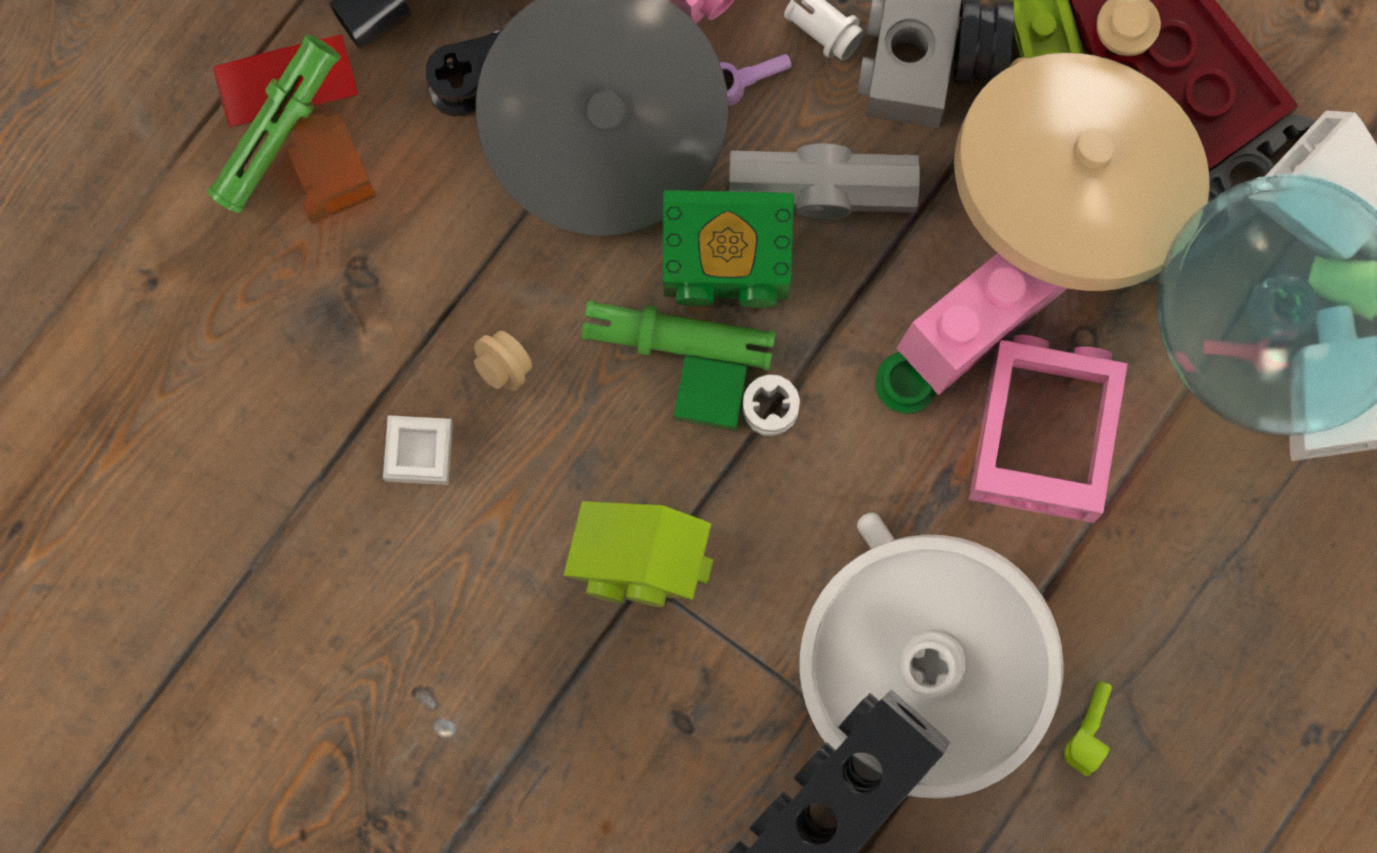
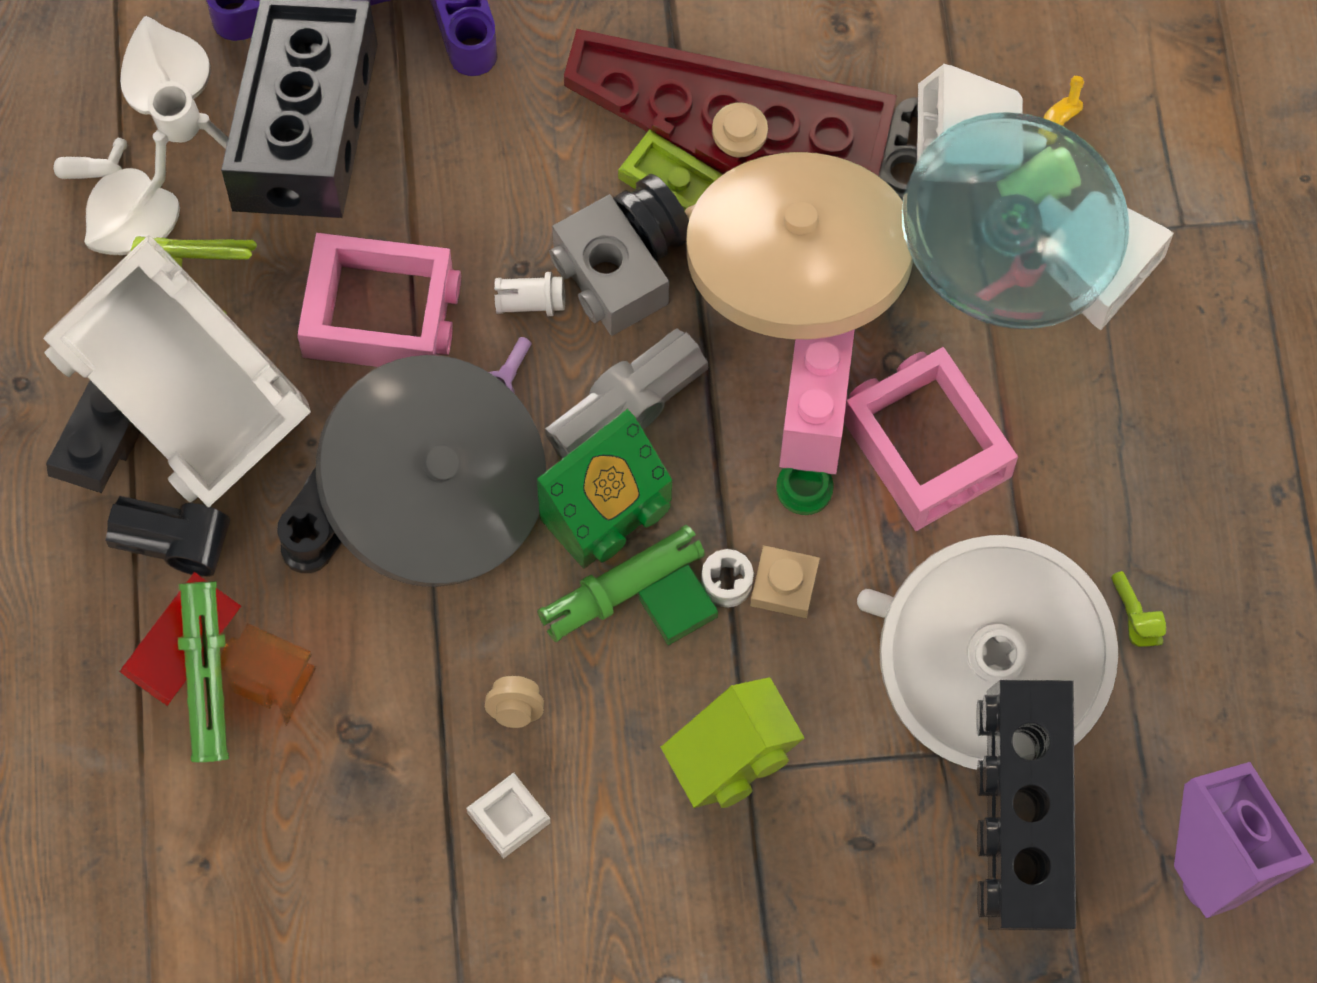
camera: 45 degrees left, 10 degrees down
(816, 449) = (784, 581): none -> tan plate

